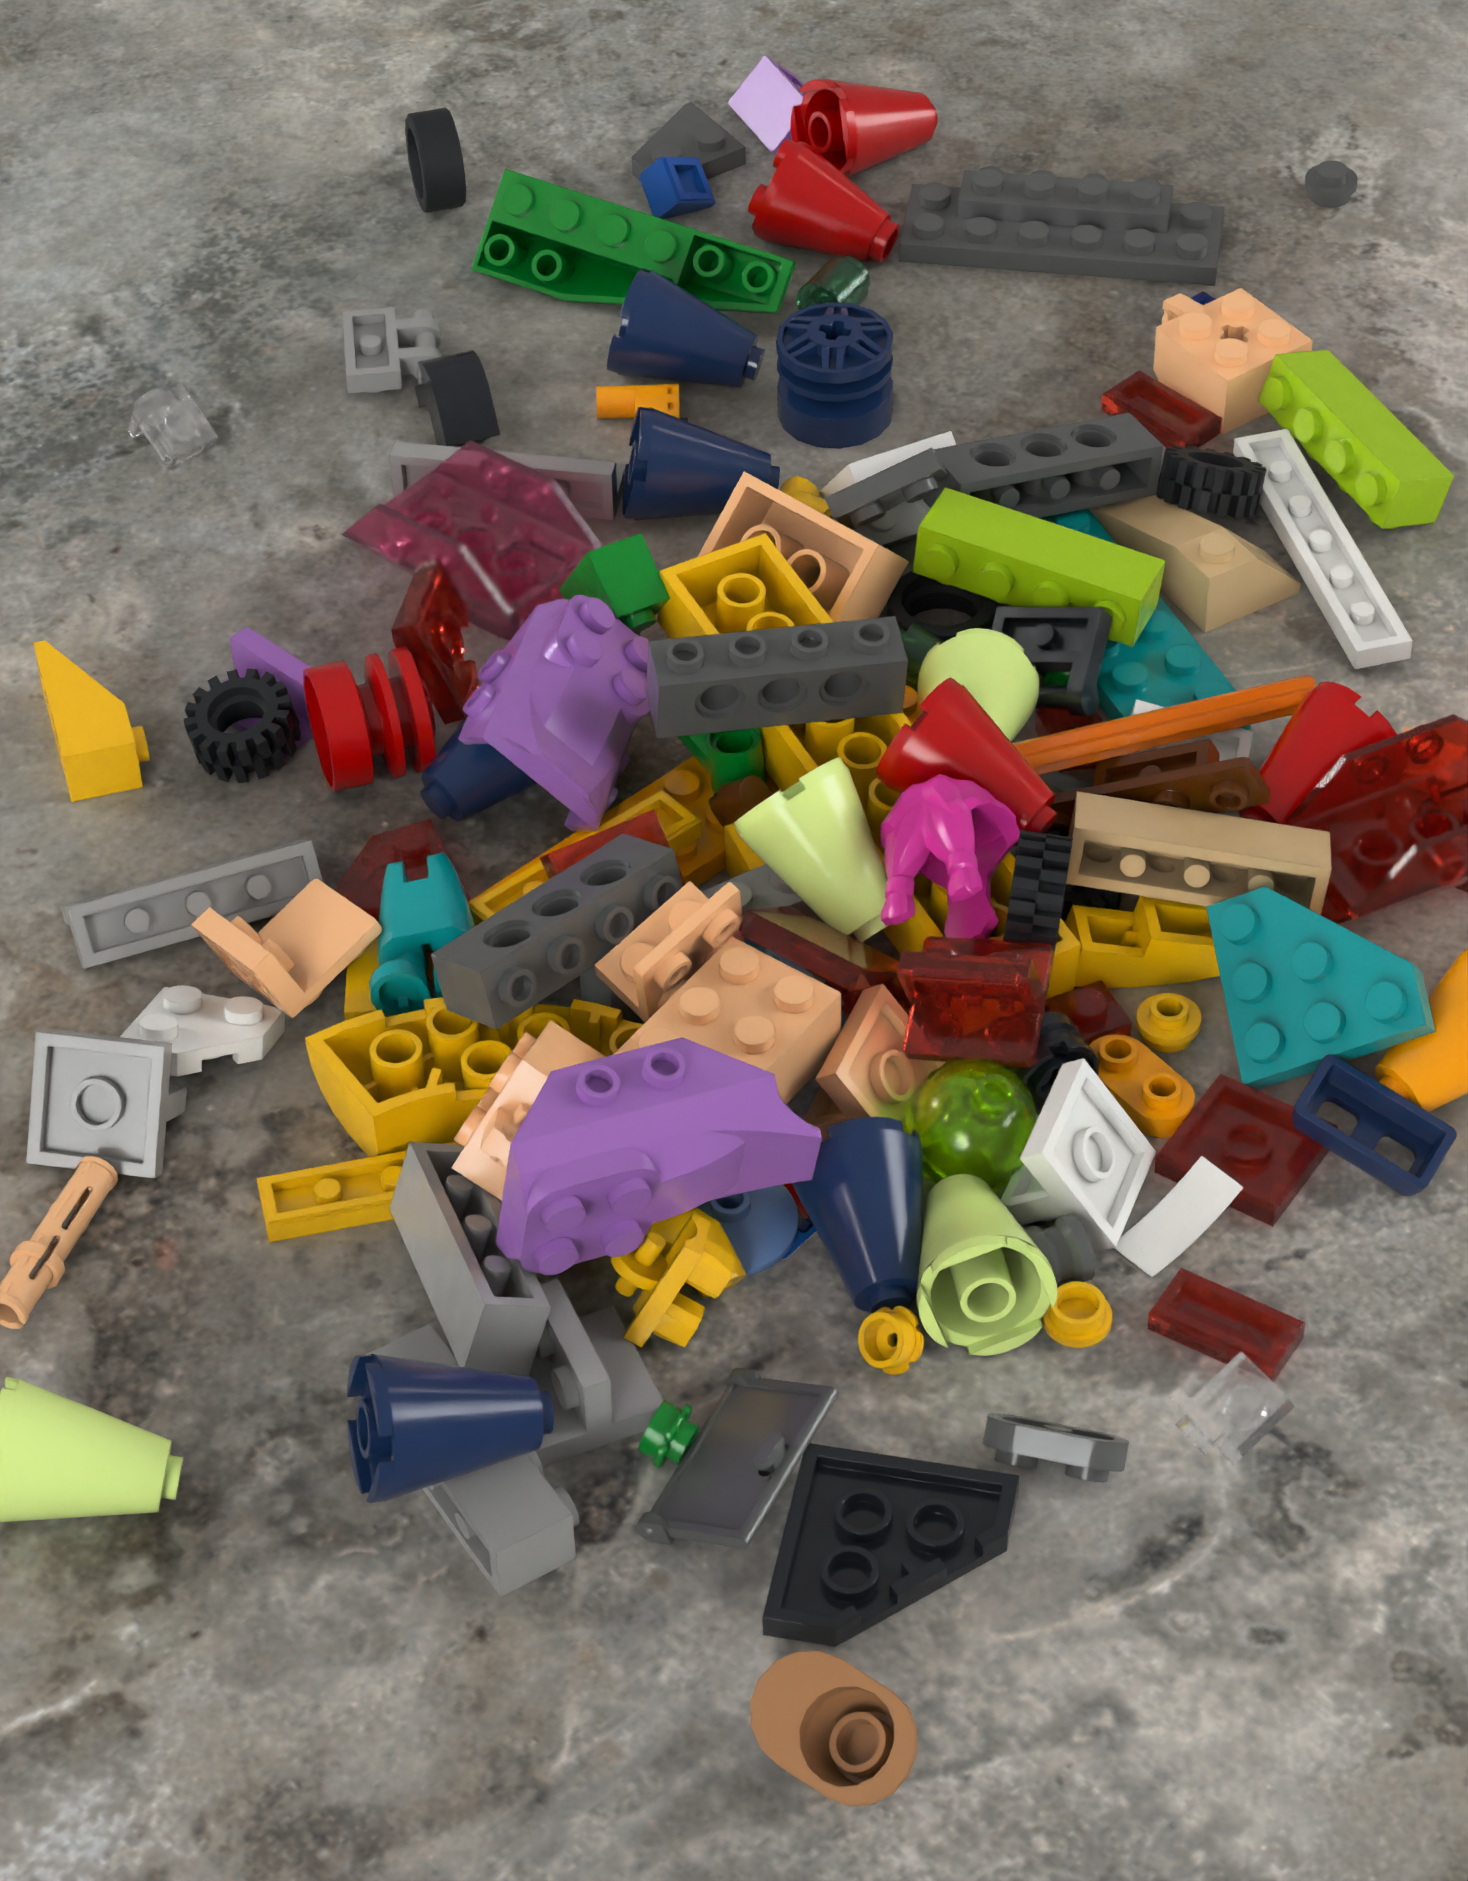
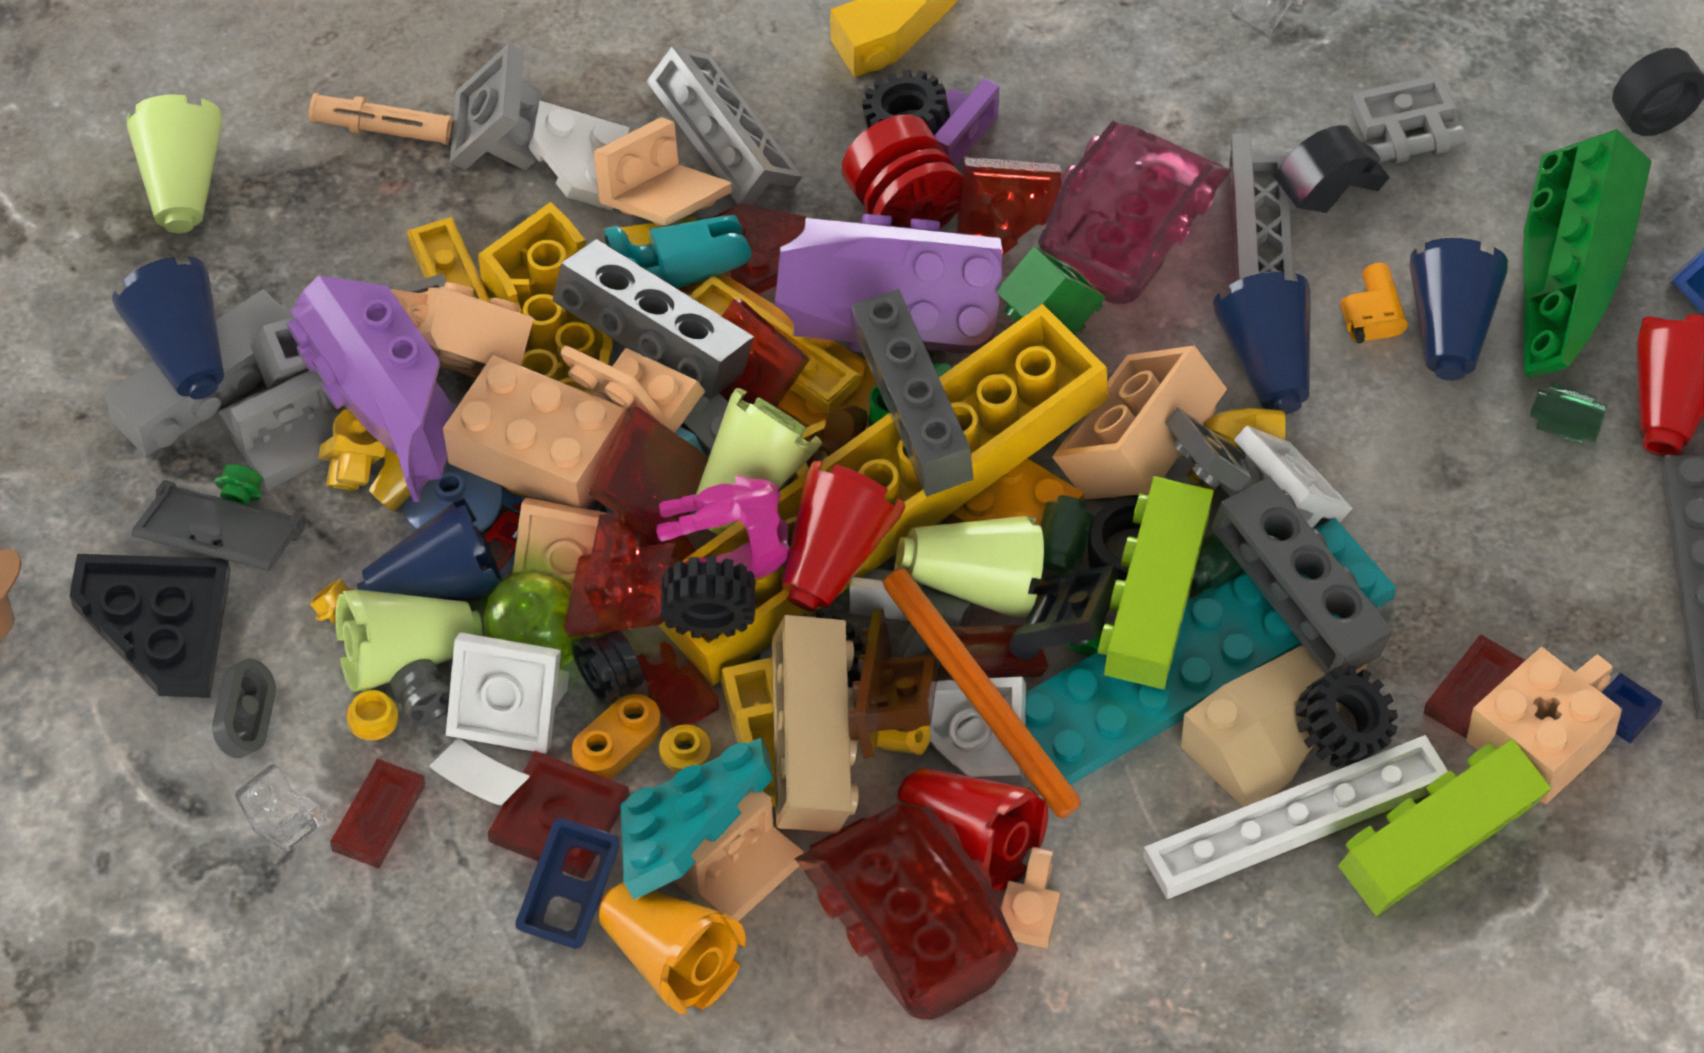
camera: 80 degrees right, 10 degrees up
(835, 375) = (1426, 421): dark blue wheel -> none

